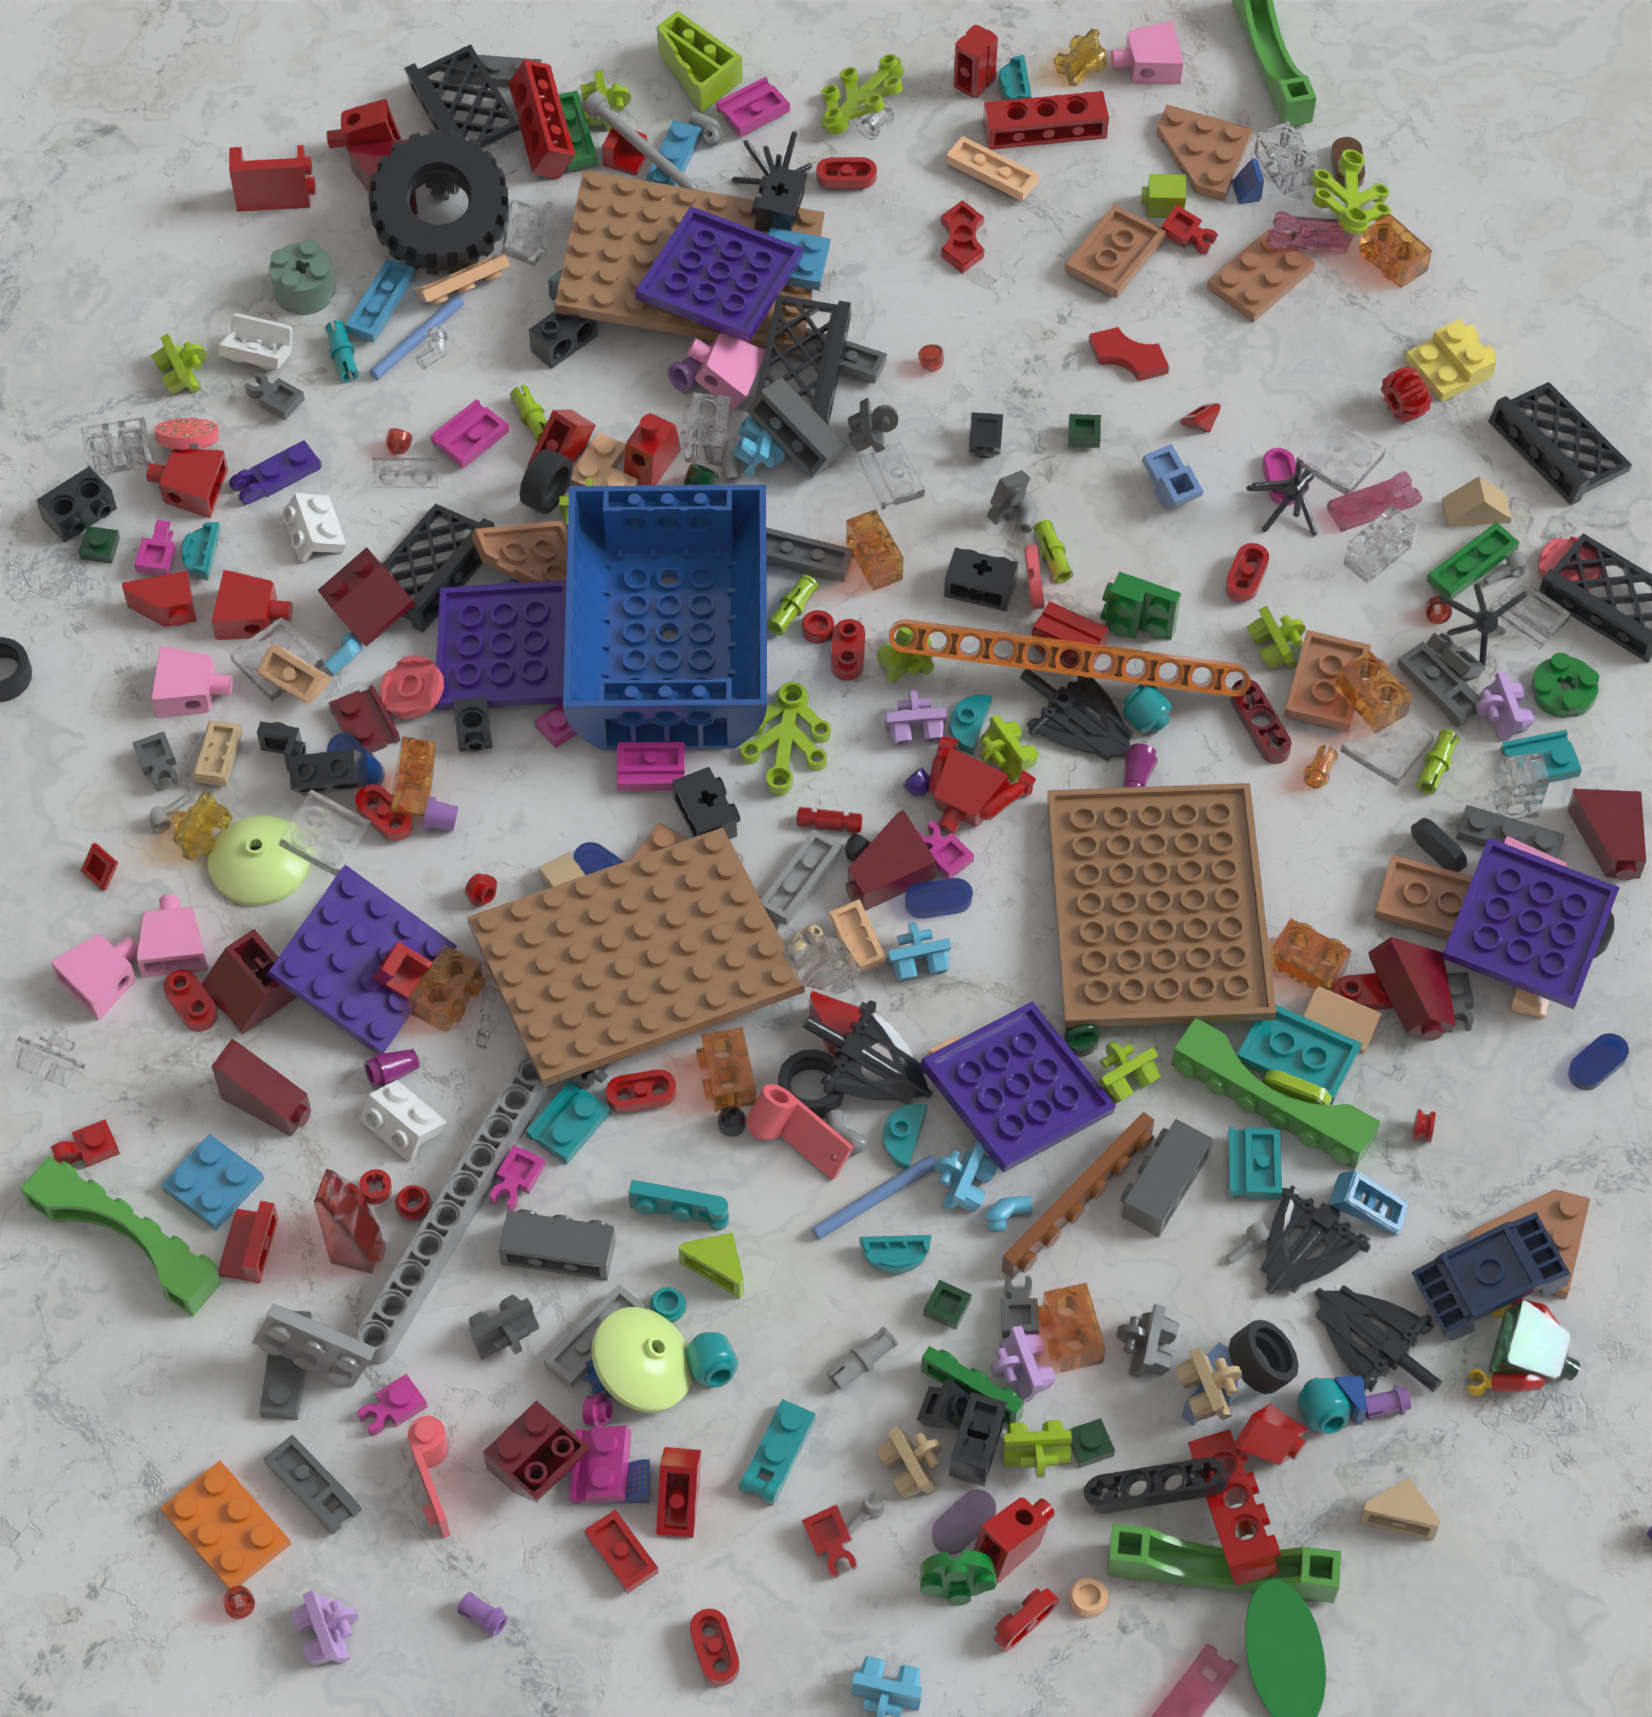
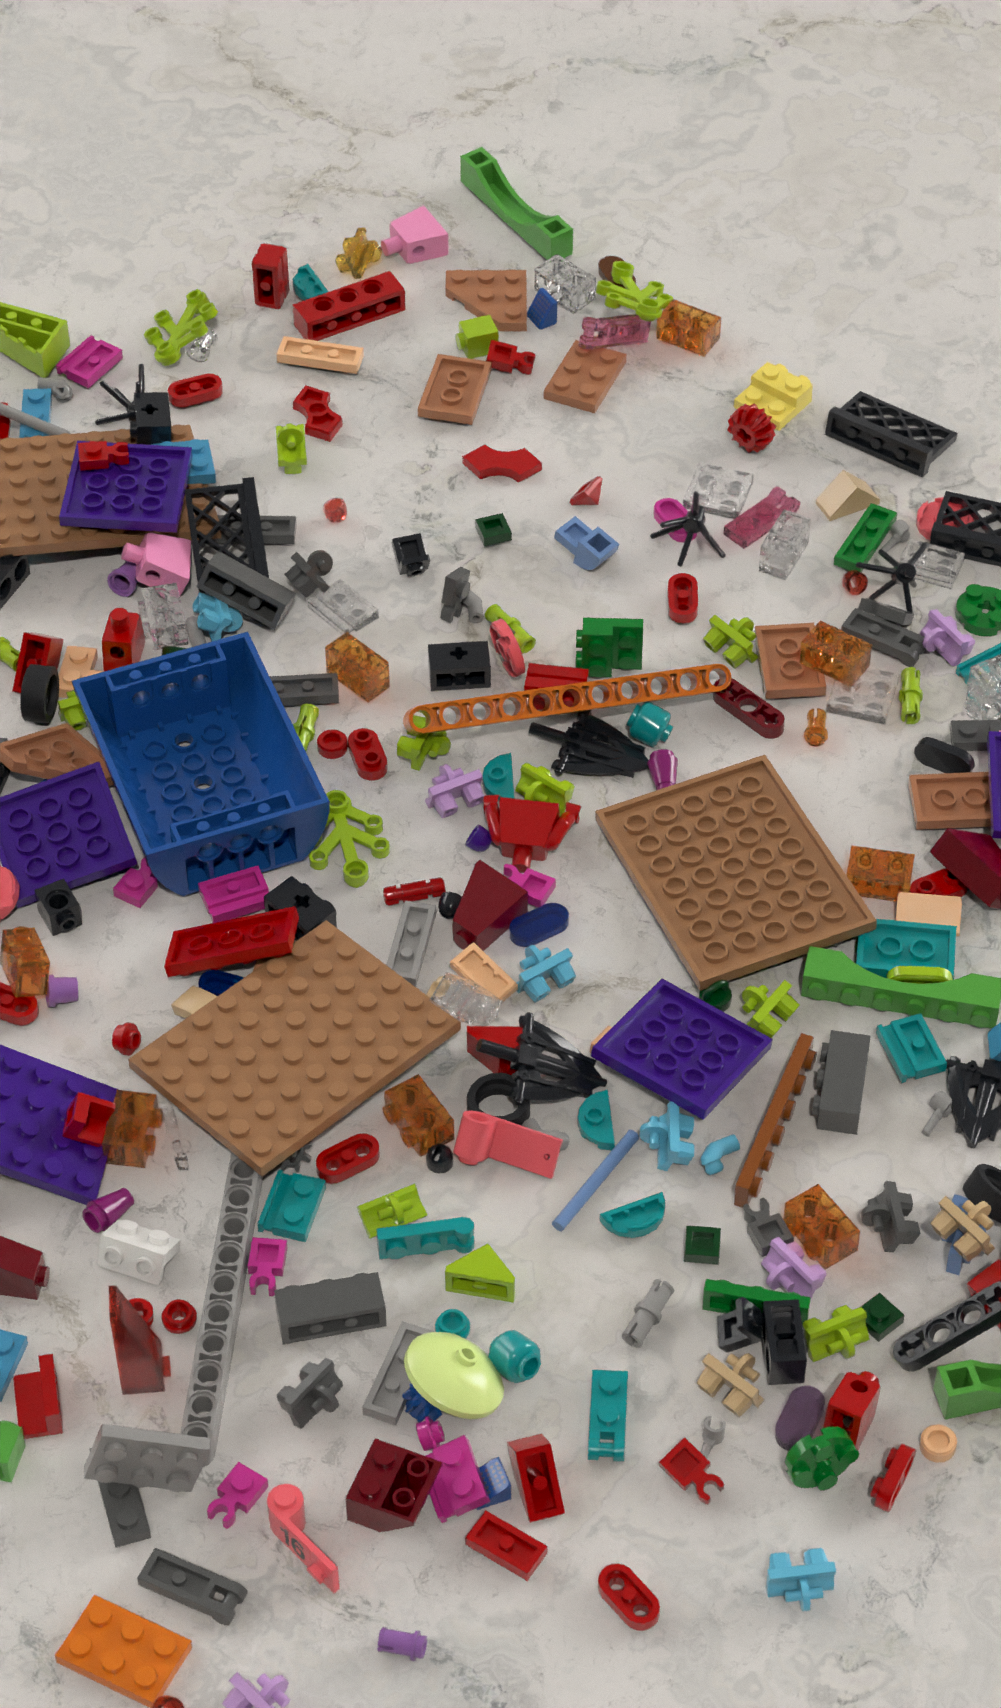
camera: 20 degrees left, 10 degrees down
(620, 821) = (231, 942): none -> red plate
(657, 1164) = (392, 1210): none -> lime hips
(703, 229) = (98, 455): none -> red plate
(914, 271) = (291, 447): none -> lime hips

